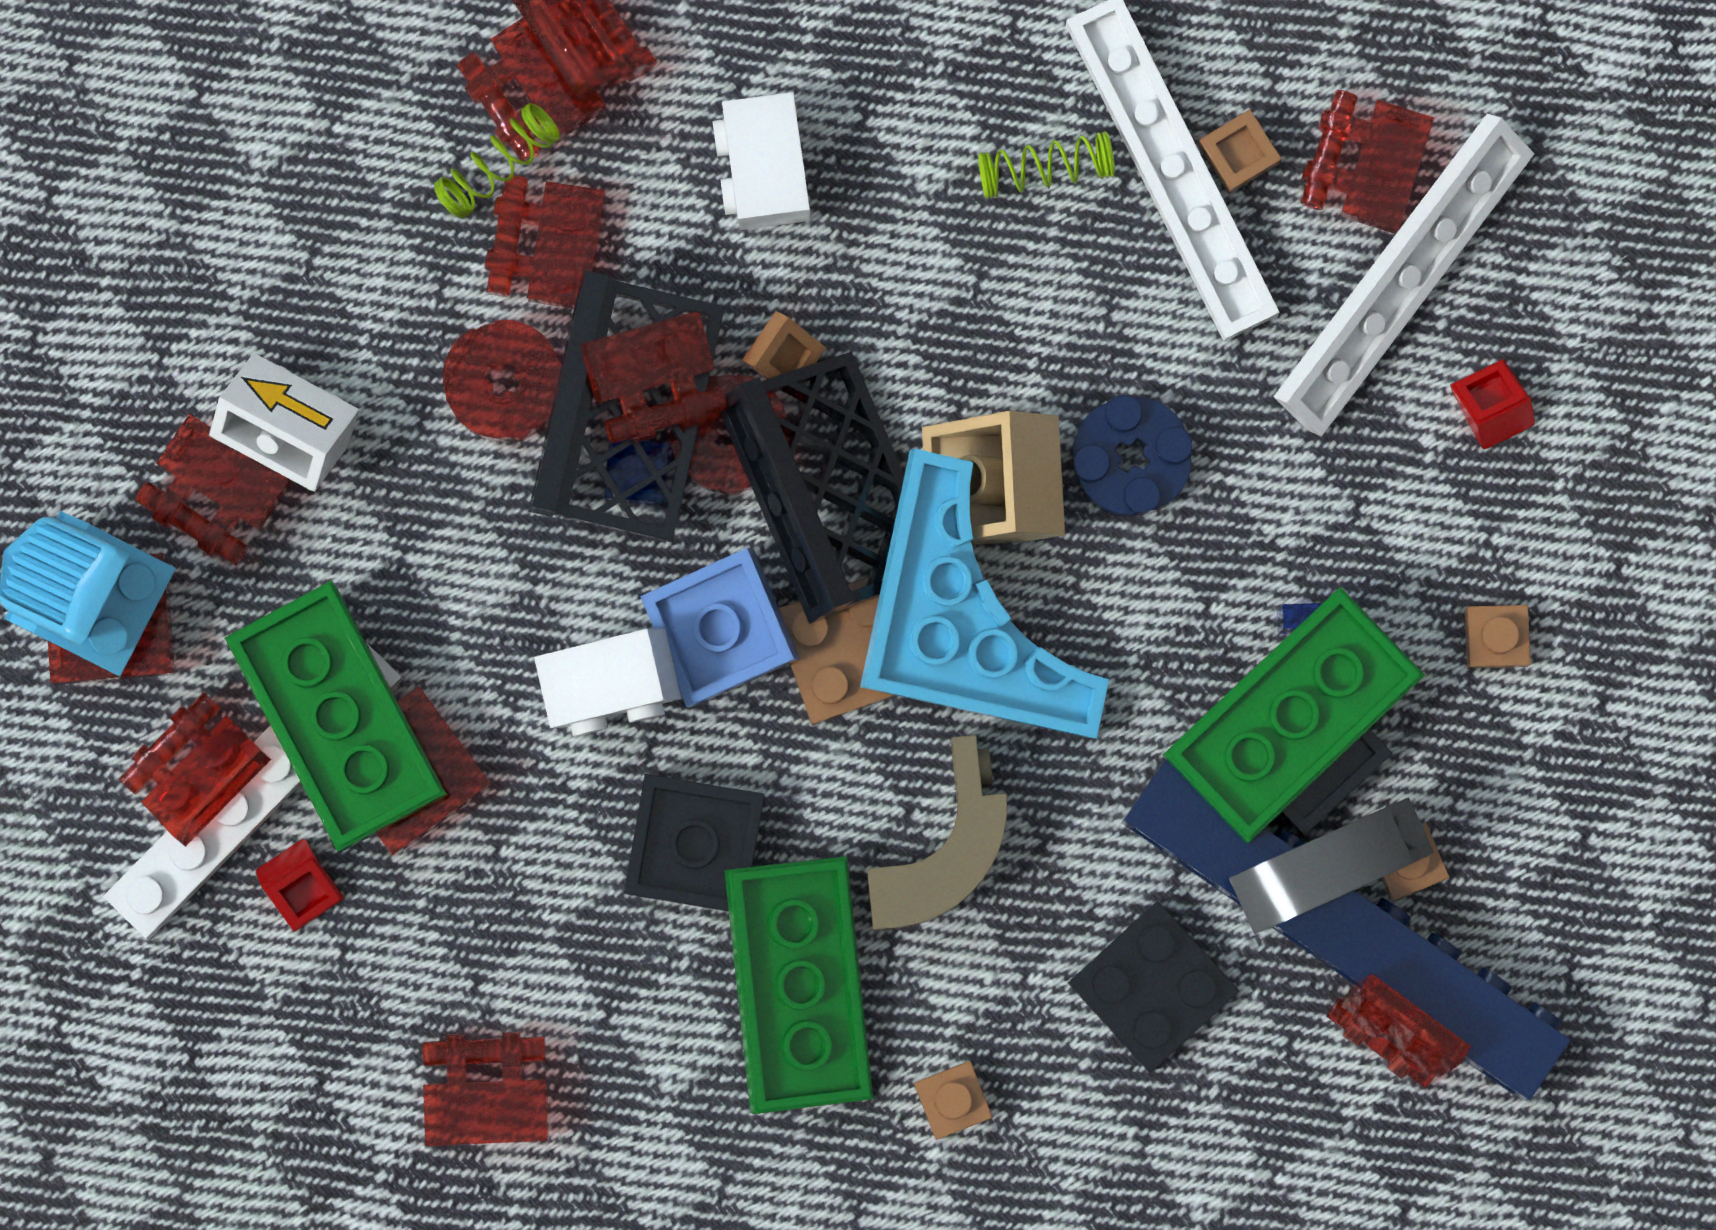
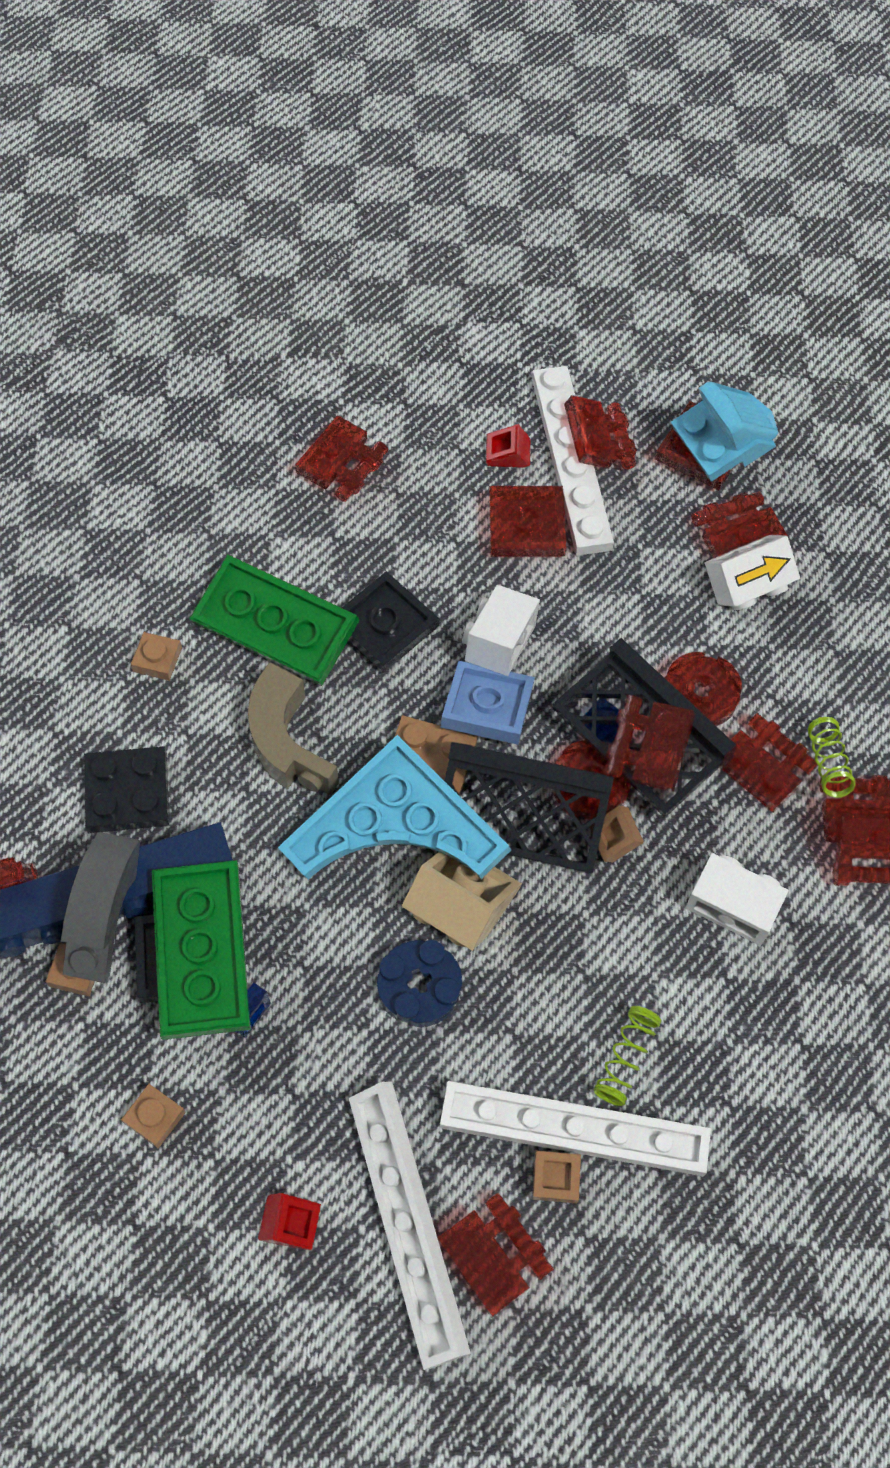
camera: 125 degrees right, 20 degrees down
(335, 716) = (579, 501): green tile -> none

